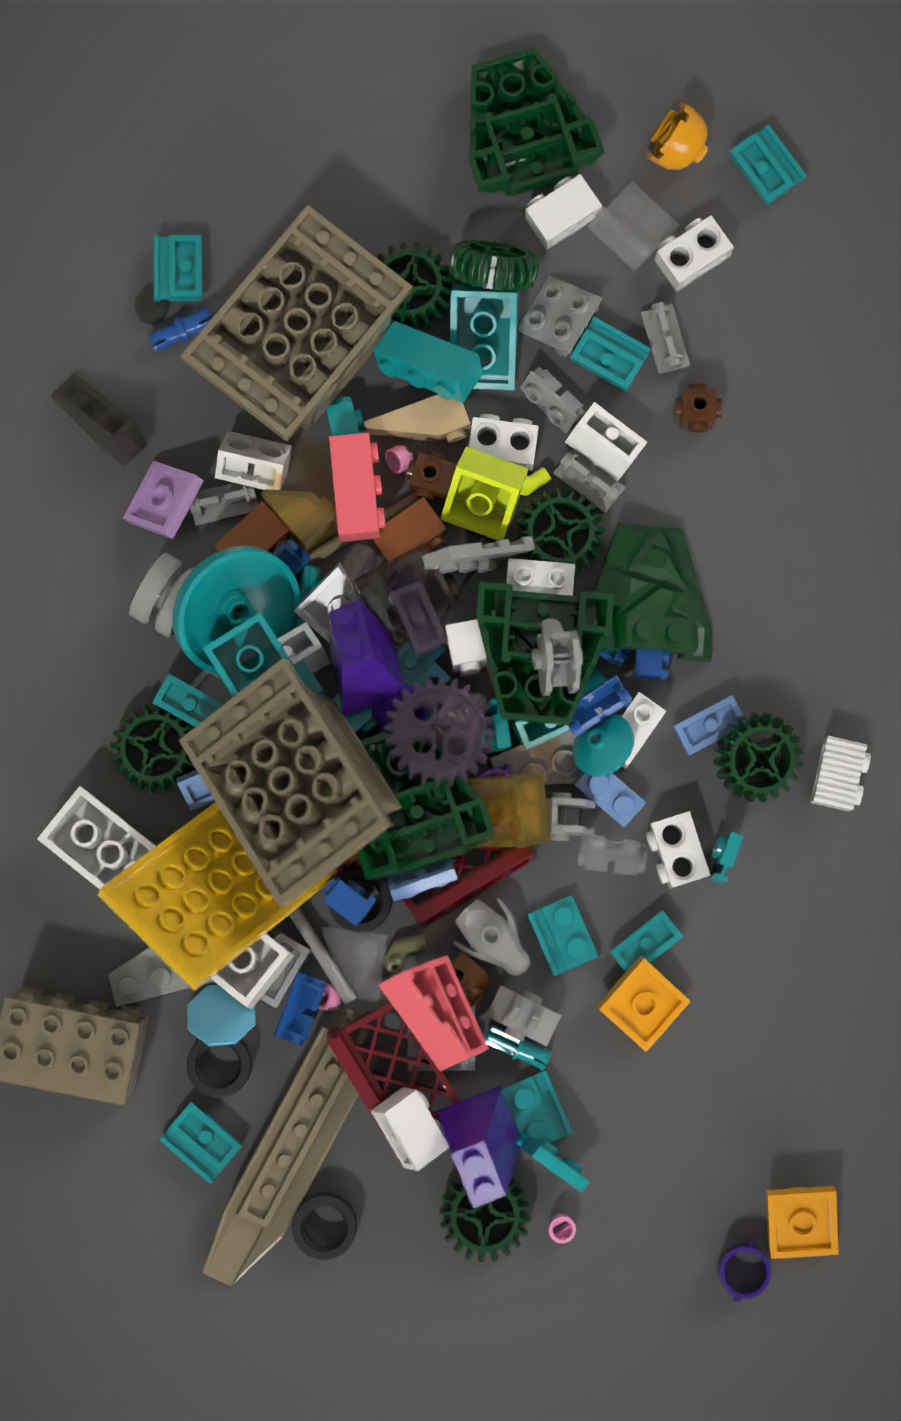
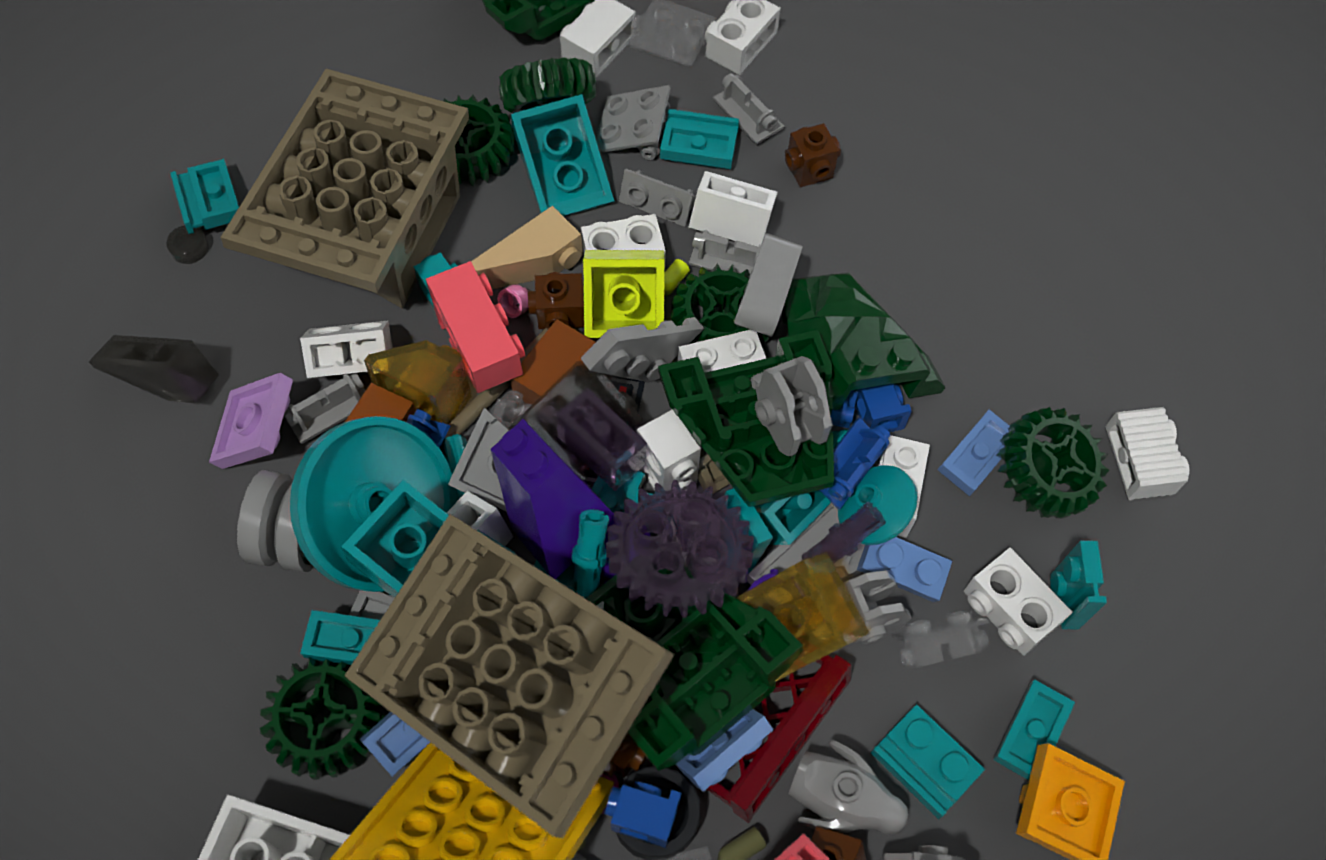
camera: 25 degrees left, 20 degrees down
(180, 329) = (217, 260): blue pin -> none
(375, 710) = (590, 552): none -> teal pin
(428, 362) = (512, 190): teal brick -> none
(566, 762) = (847, 535): none -> clear purple pin
(599, 531) = (768, 285): none -> light grey beam

